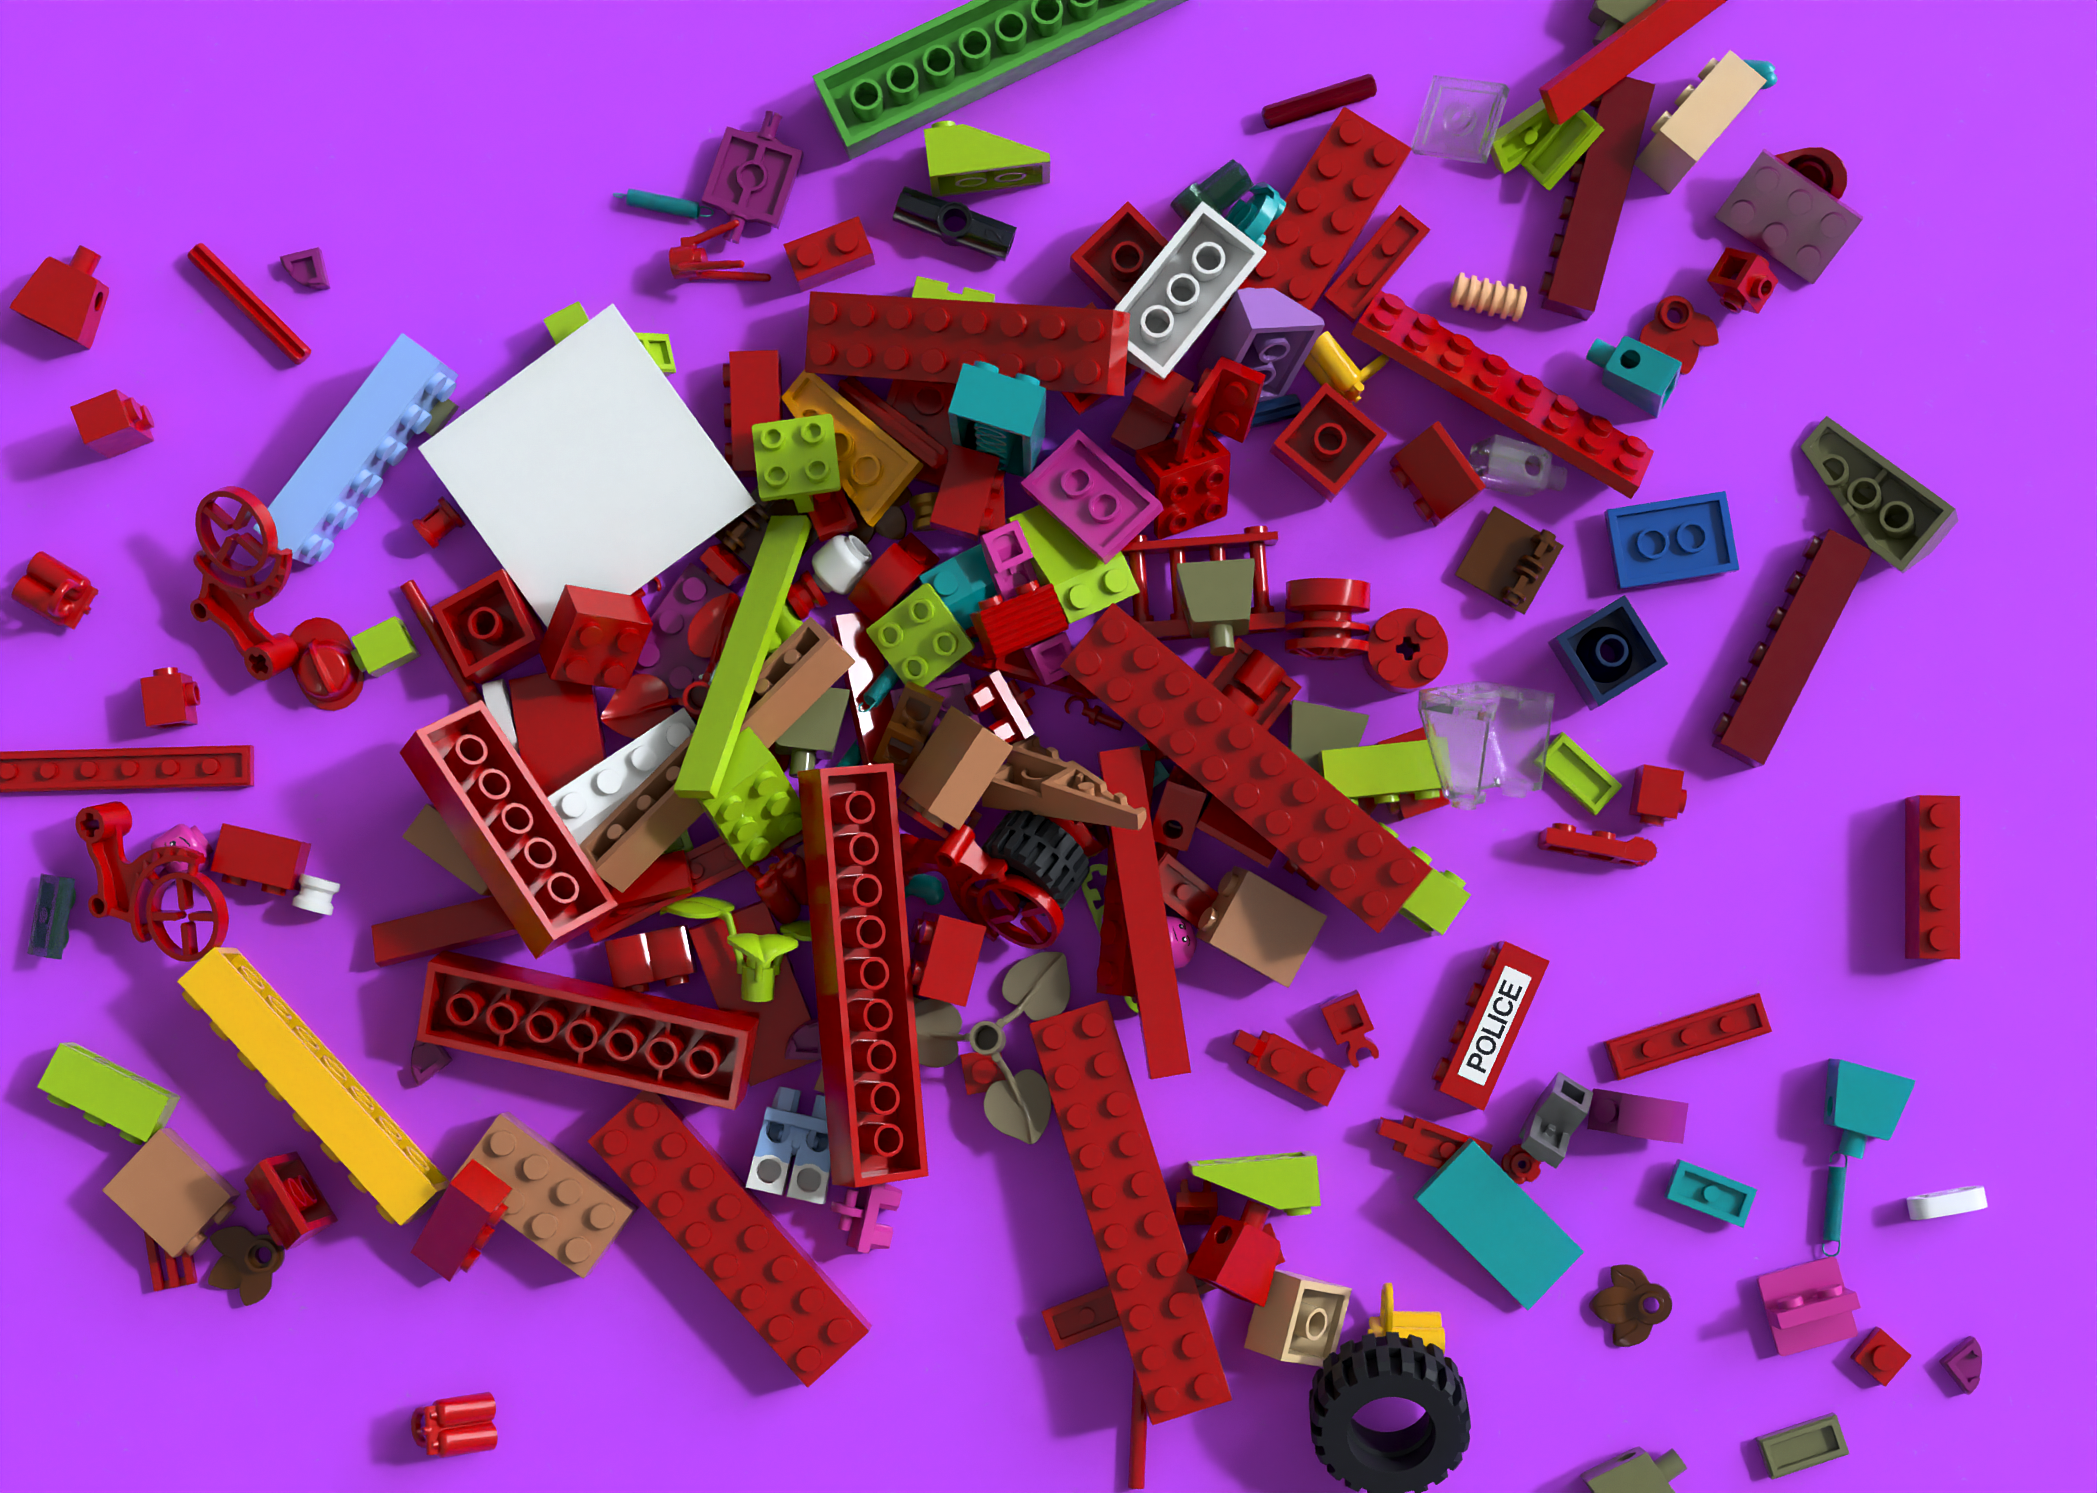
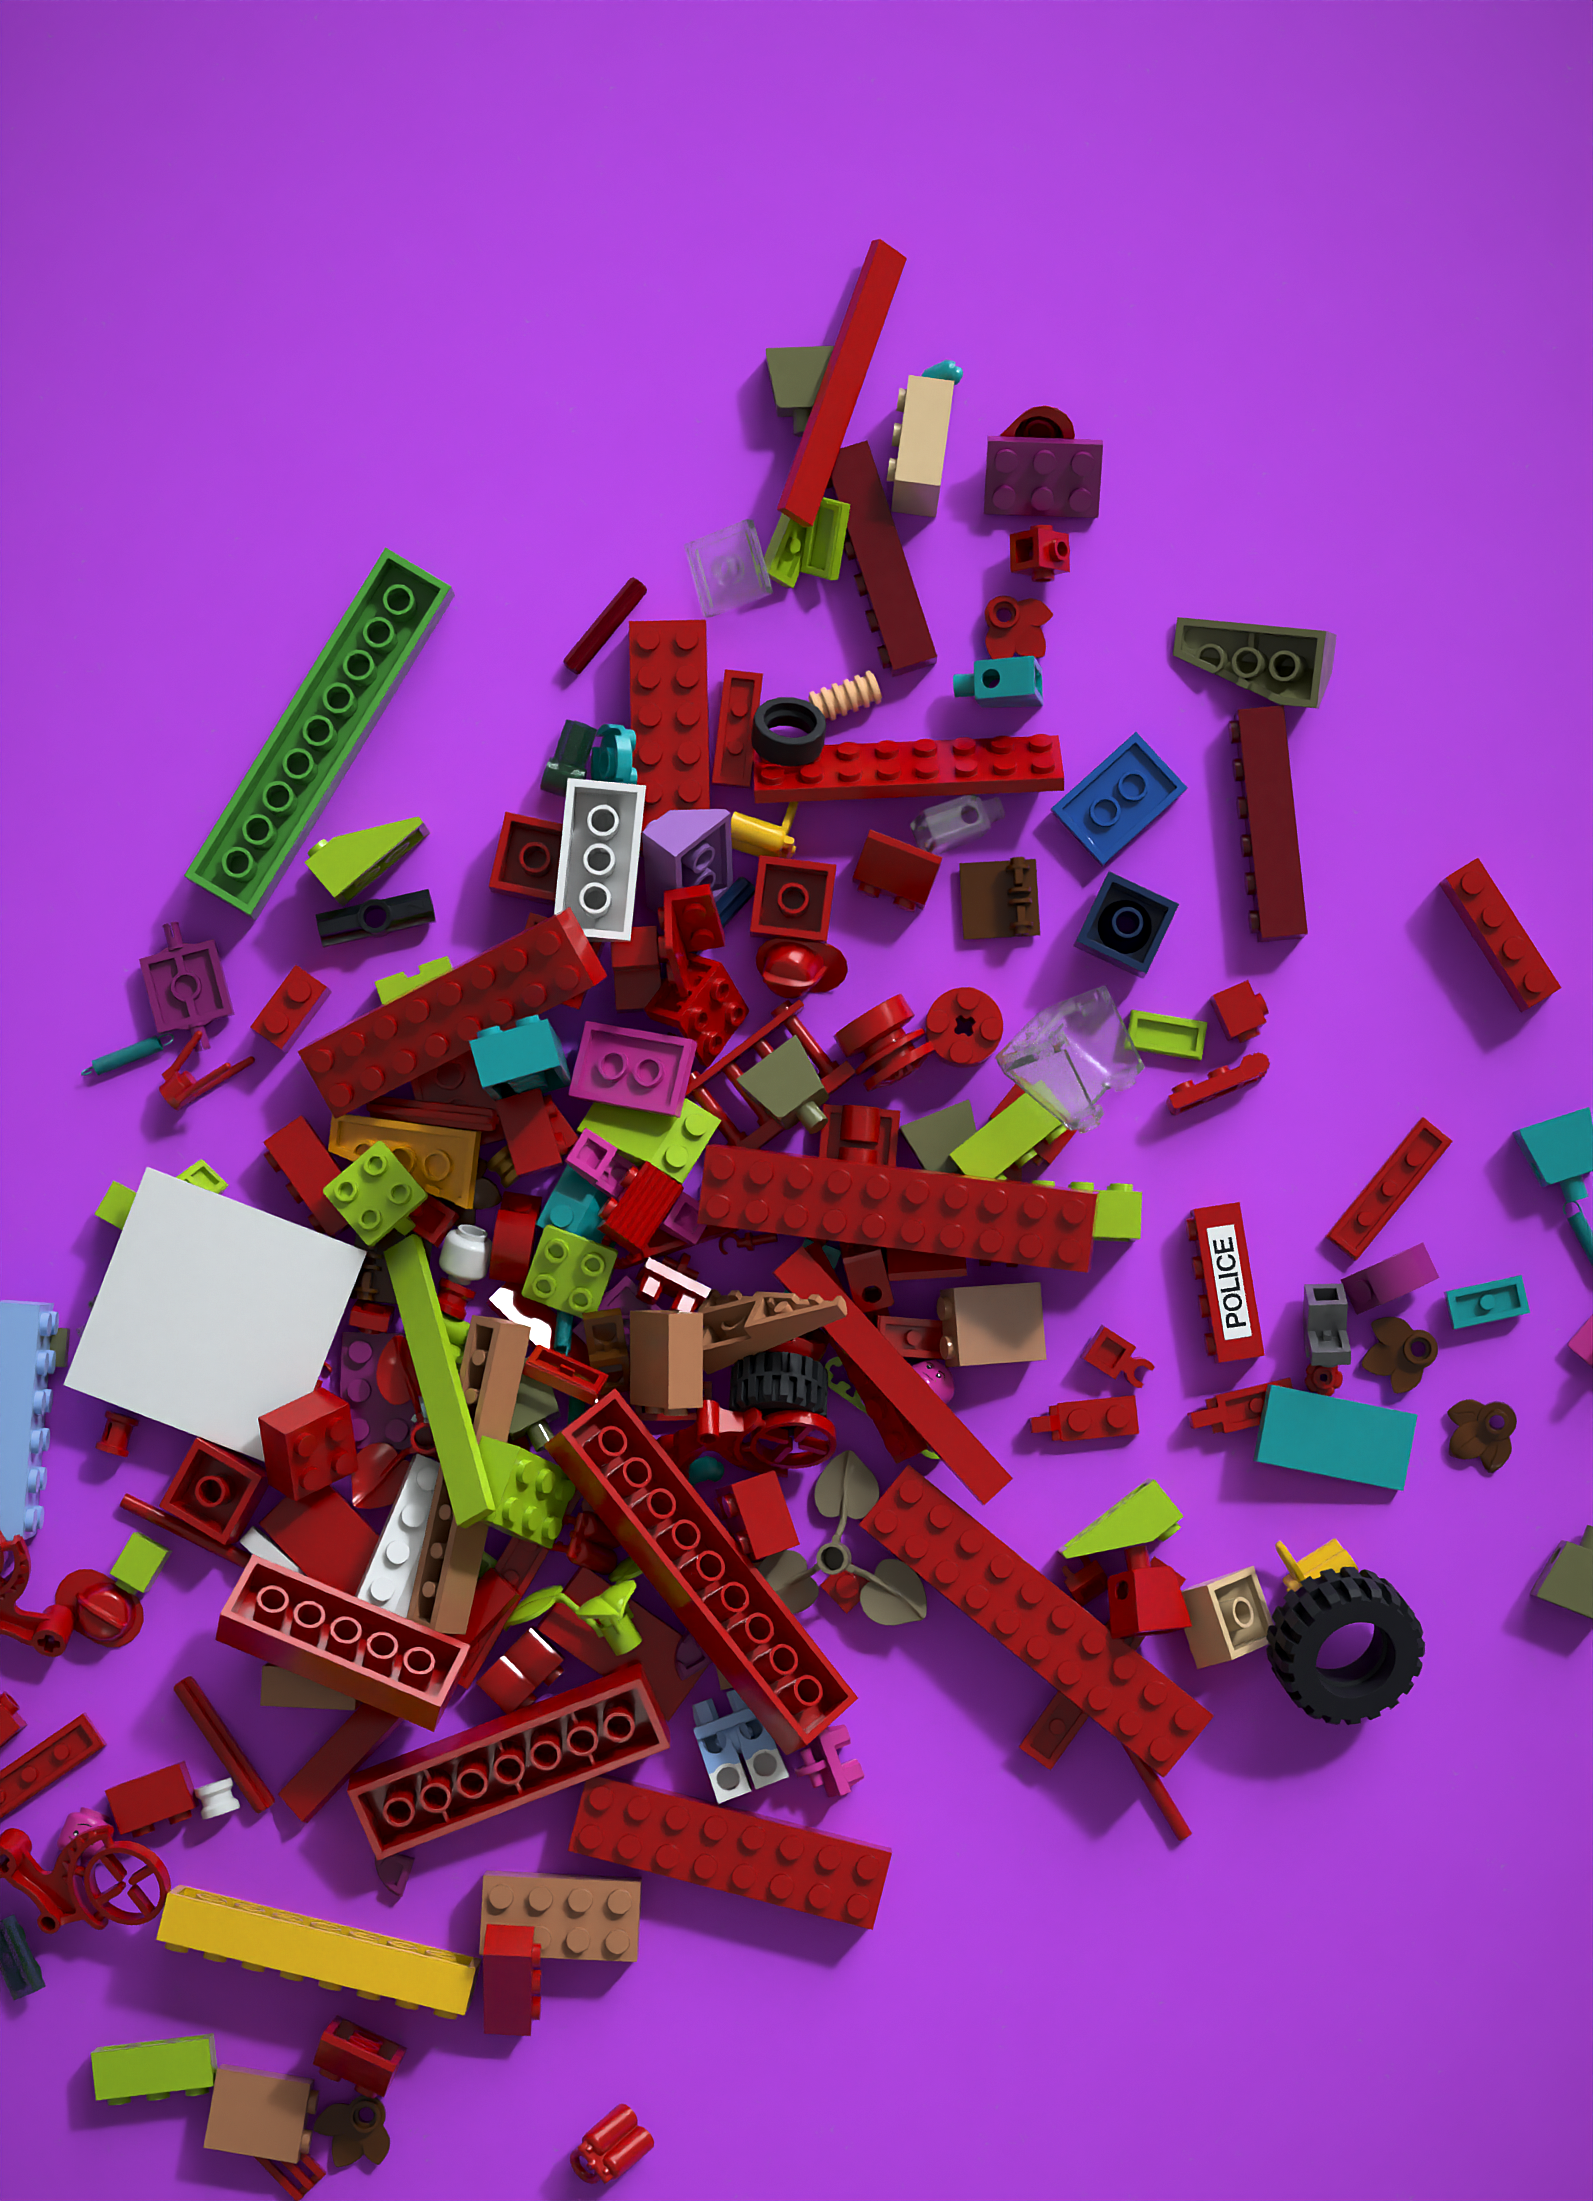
camera: 30 degrees left, 0 degrees up
(353, 851) = (224, 1744): none -> red axle
(858, 723) = (565, 1374): none -> red tile
(1296, 504) = (800, 966): none -> red piece
(1410, 306) = (786, 750): none -> black tyre
(1597, 1185) = (1394, 1355): none -> reddish brown plate

